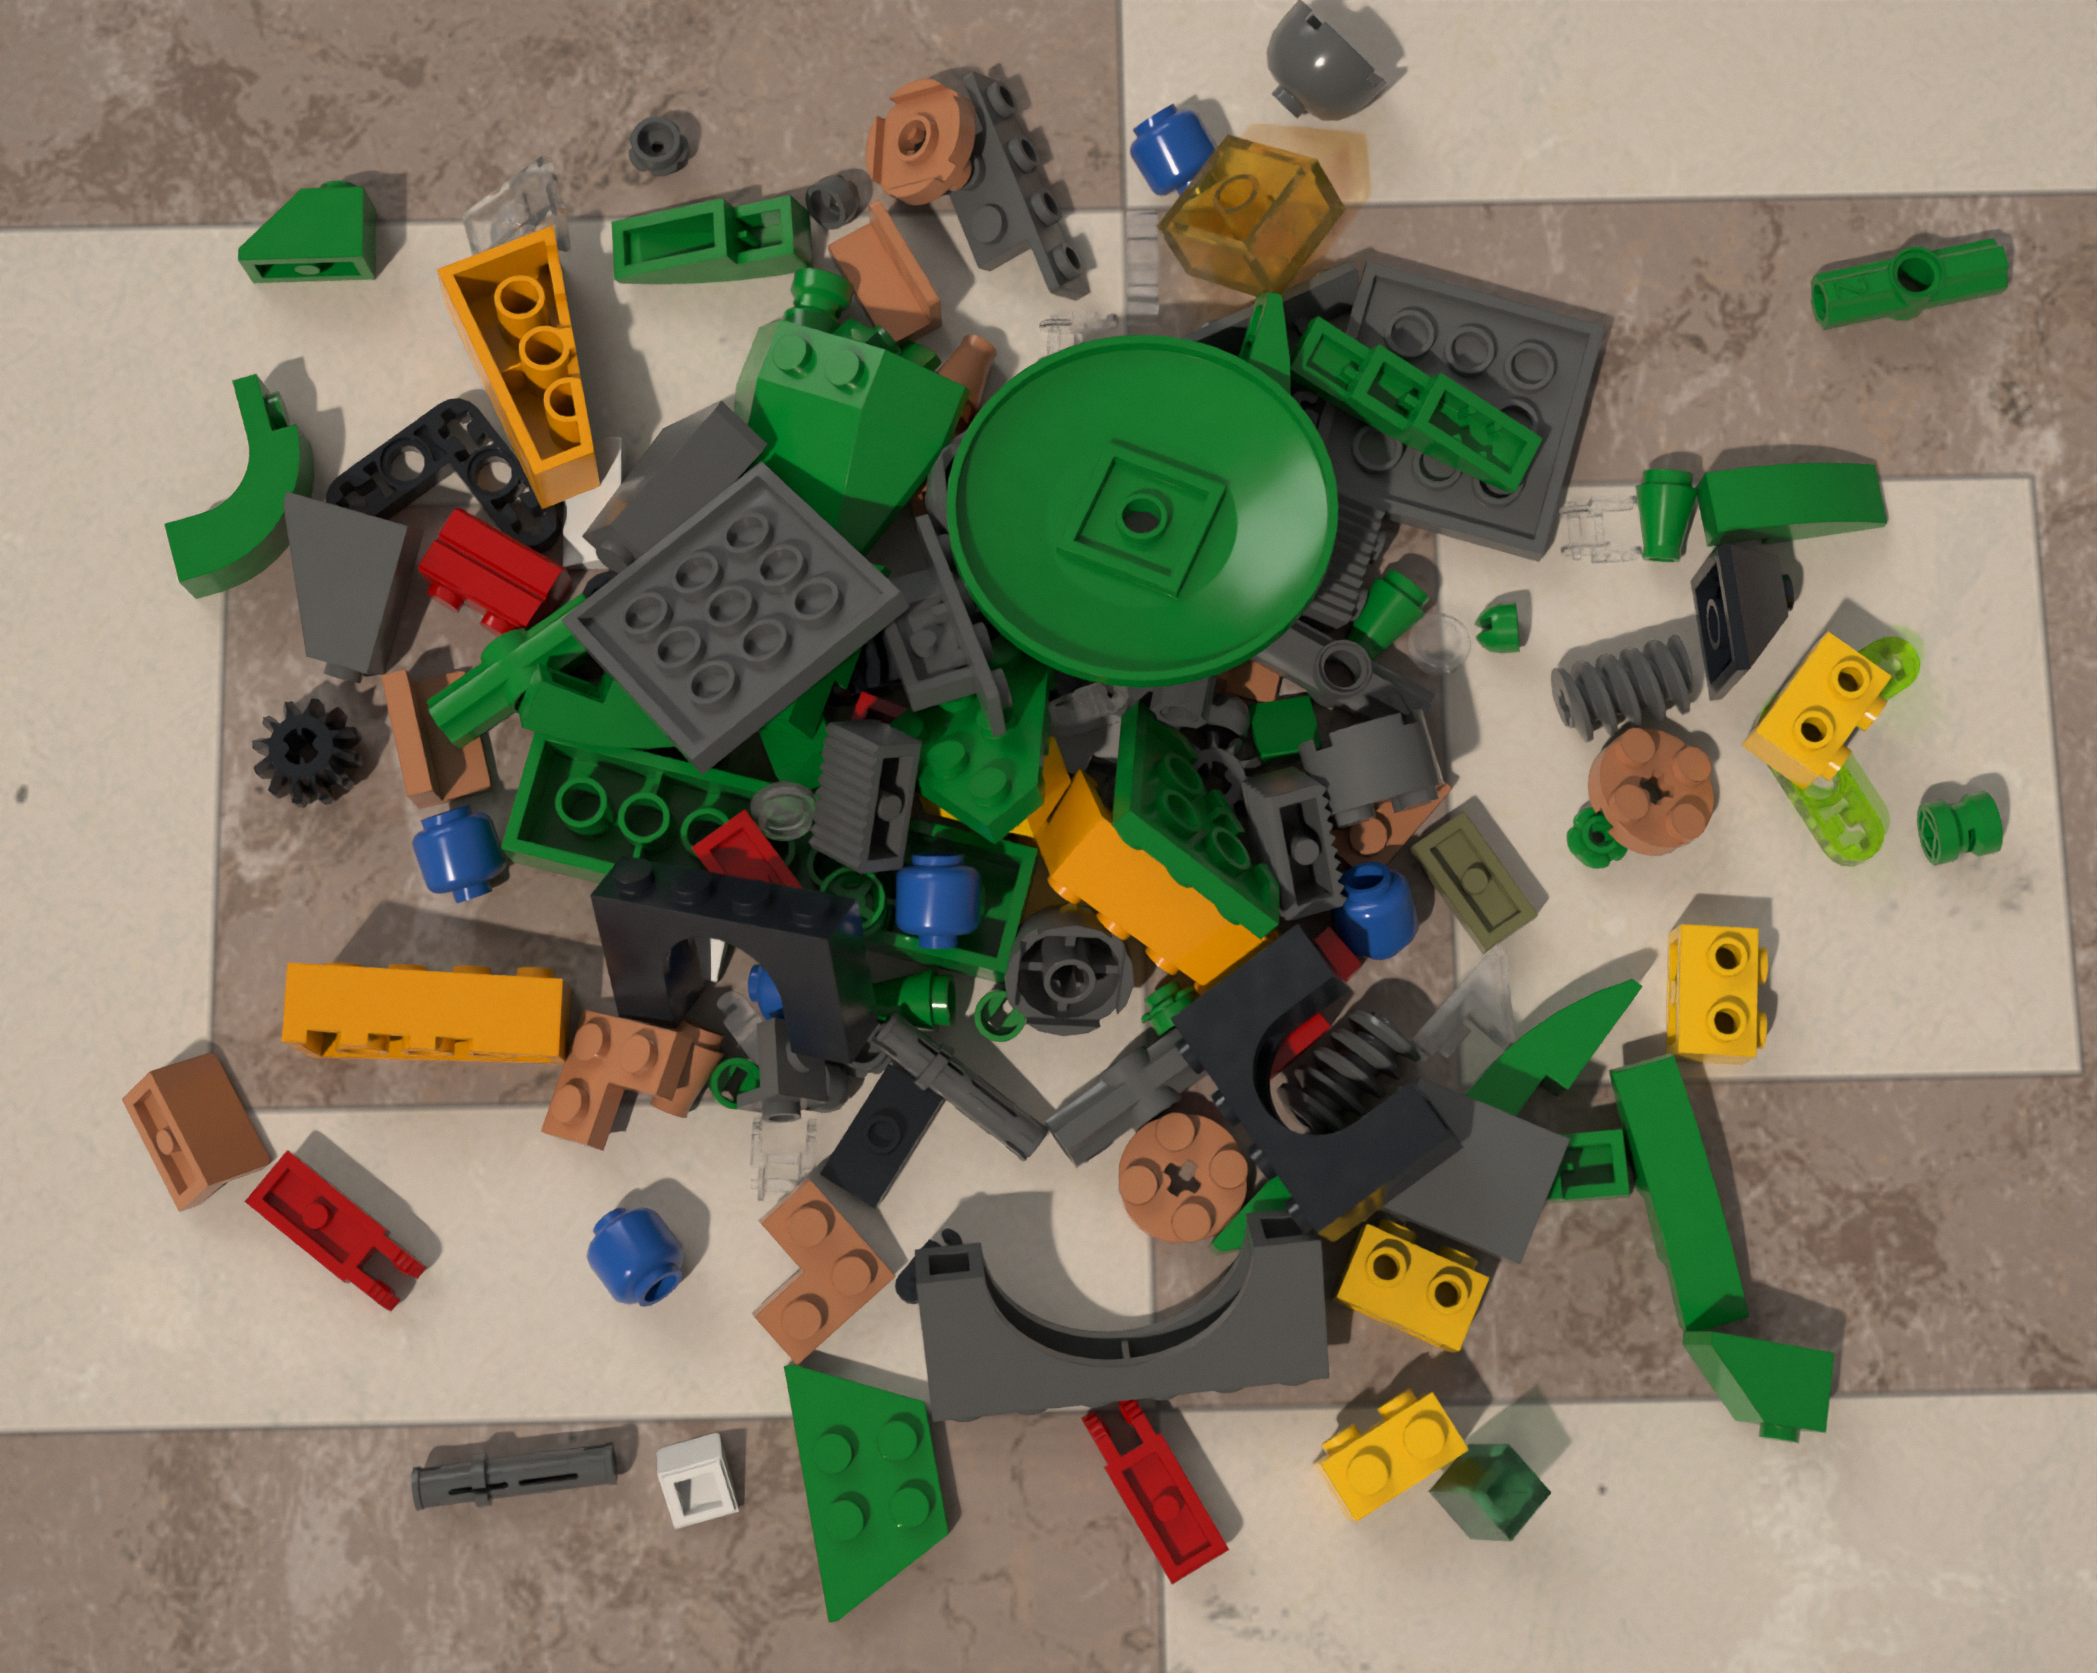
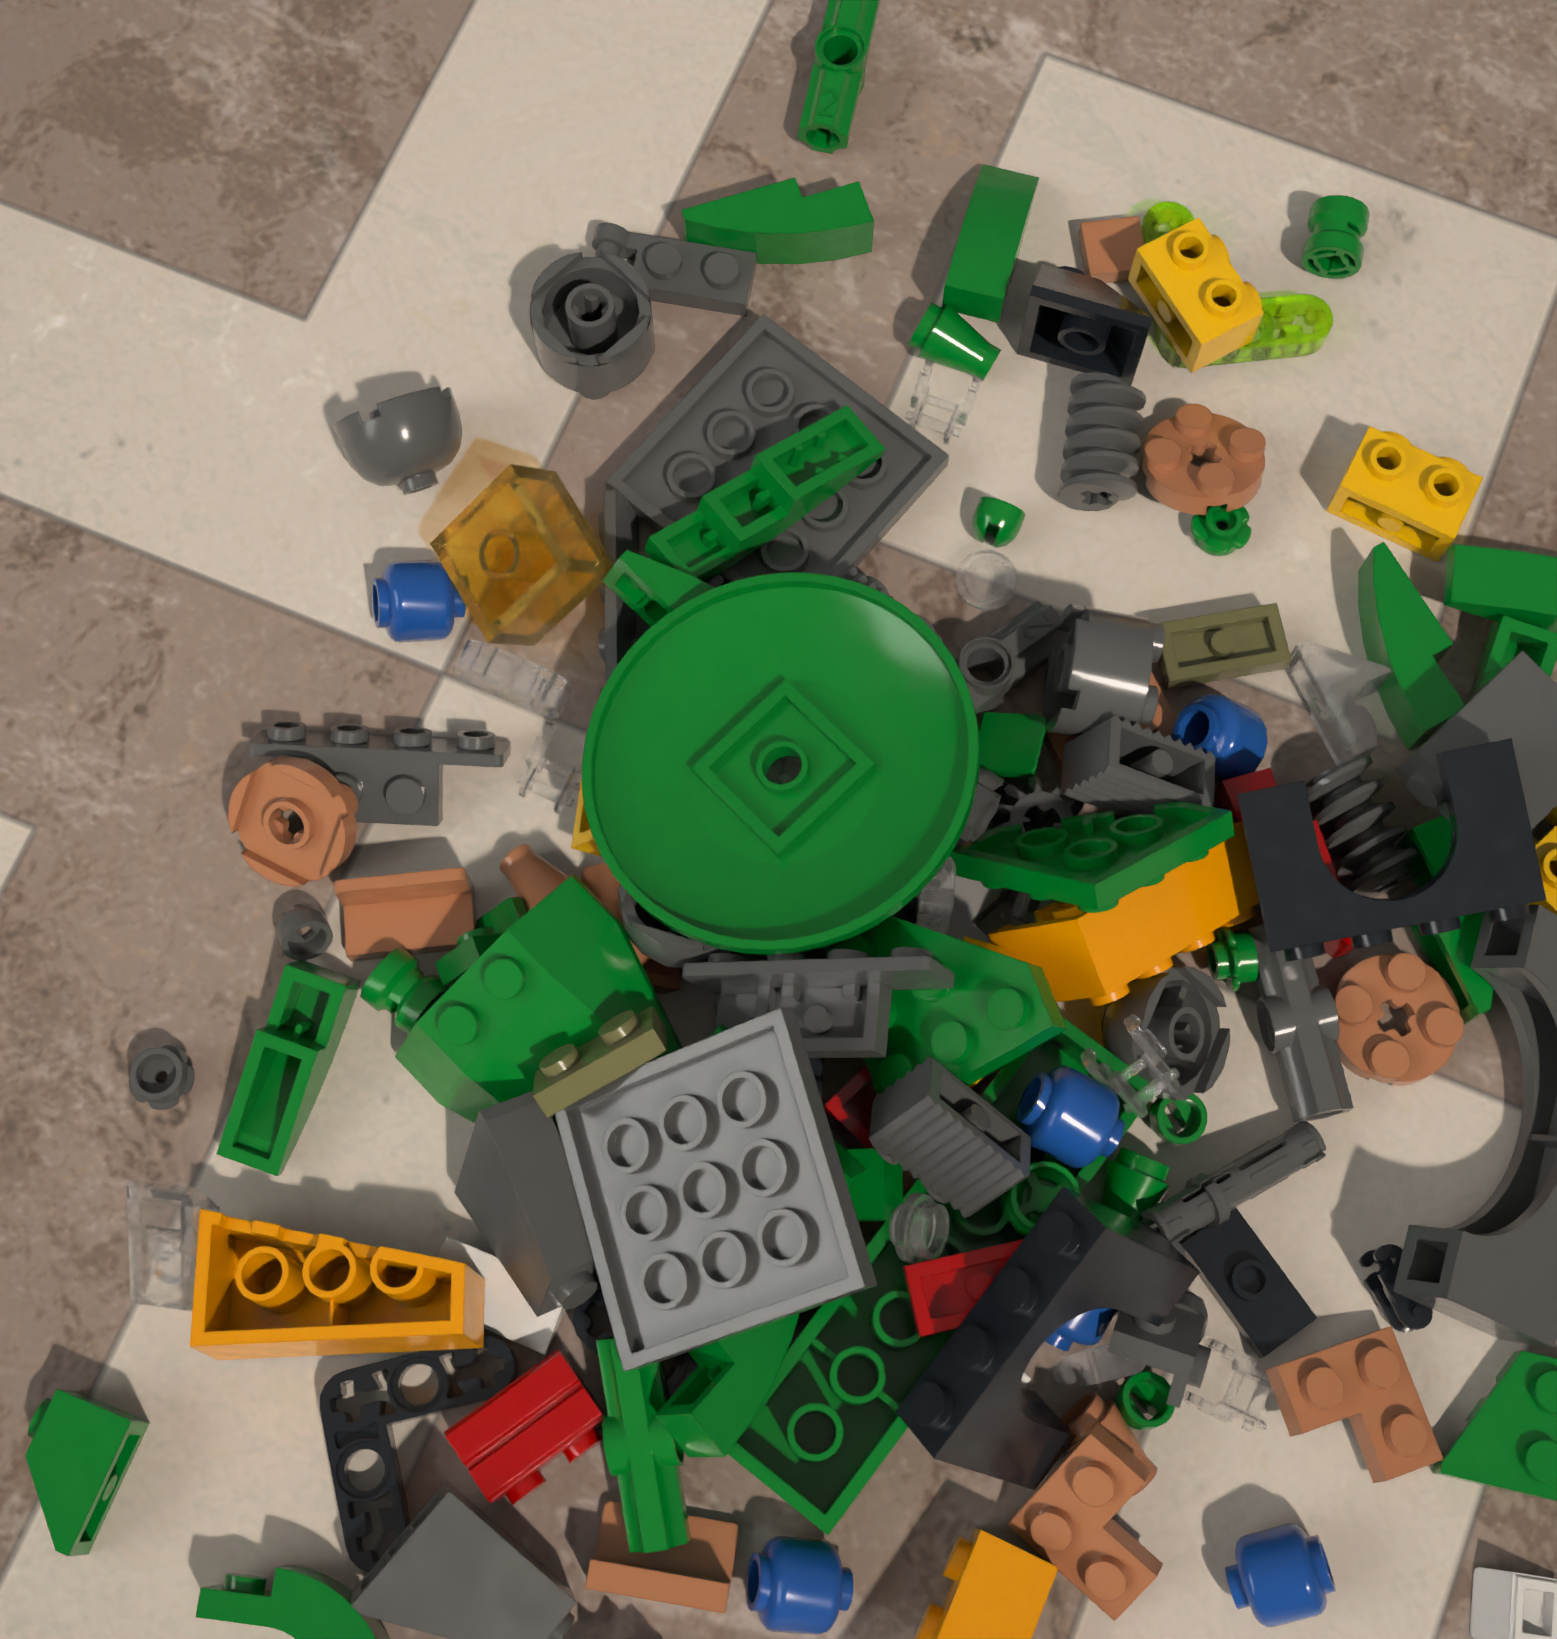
camera: 65 degrees left, 5 degrees down
(825, 490) = (576, 1072): none -> olive plate
(1020, 947) = (1153, 1057): none -> clear piece
(1389, 612) = (943, 603): green cone -> none
(1508, 210) = (592, 323): none -> dark grey brick
(1615, 229) = (684, 270): none -> dark grey plate
(1708, 305) = (784, 224): none -> green slope
(1844, 615) = (1110, 247): none -> nougat tile

